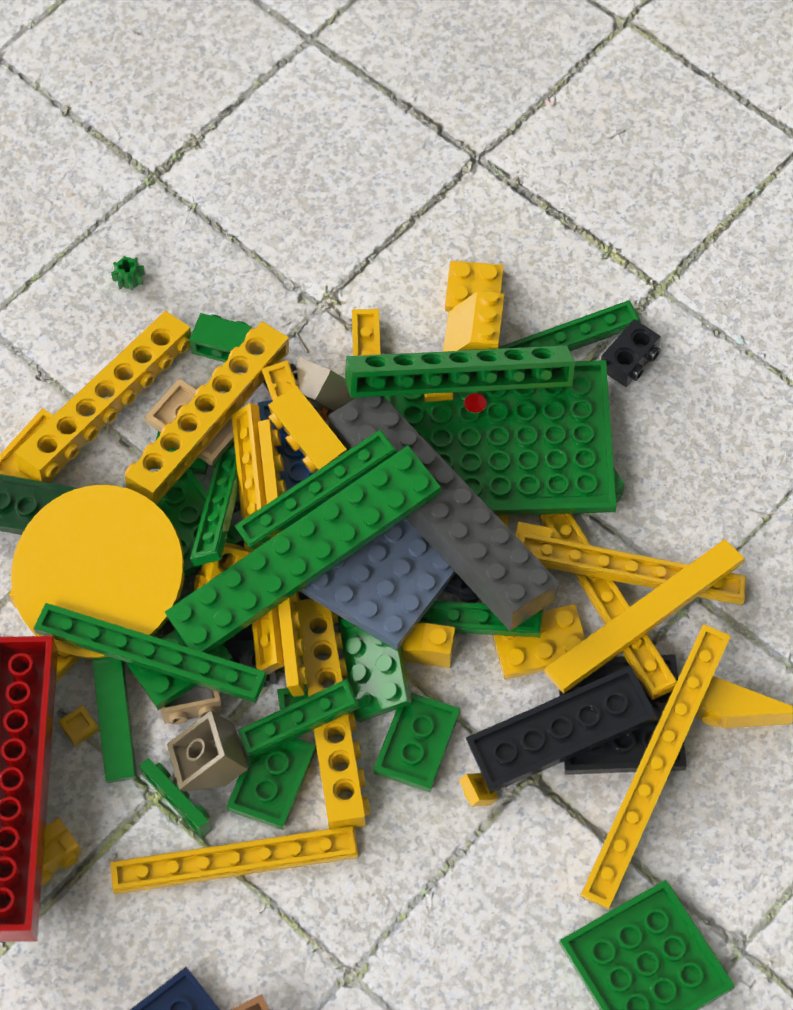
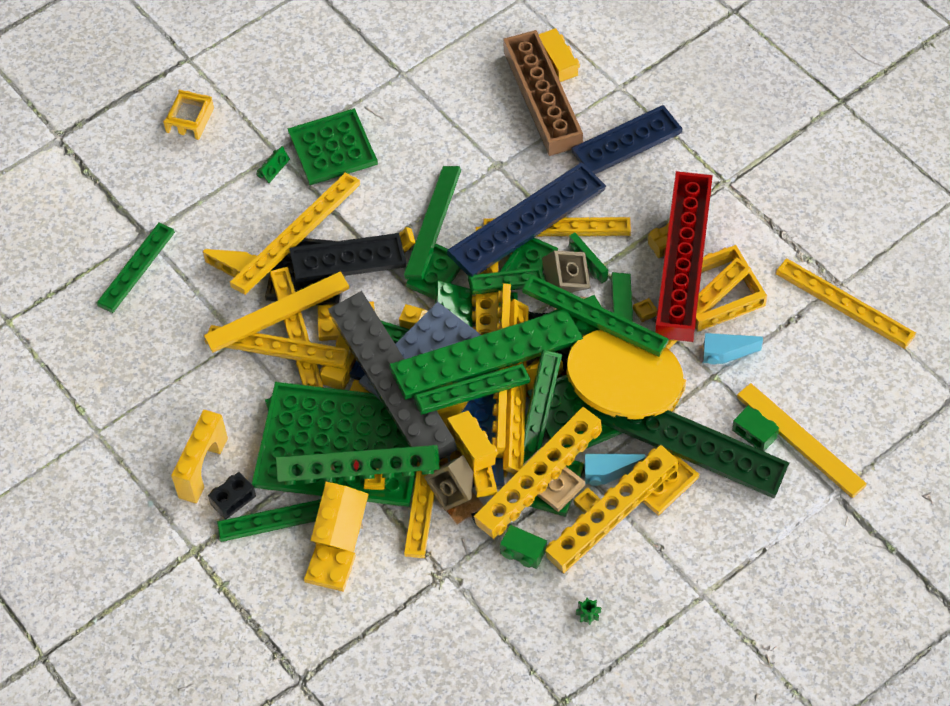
camera: 170 degrees left, 5 degrees down
(107, 462) = (609, 467): none -> medium azure slope
(136, 412) = (585, 500): none -> yellow plate
(278, 840) = (526, 220): none -> dark blue plate
(438, 830) = (432, 223): none -> green tile
(688, 380) = (207, 436): none -> yellow arch
(743, 899) = (274, 164): none -> green hinge

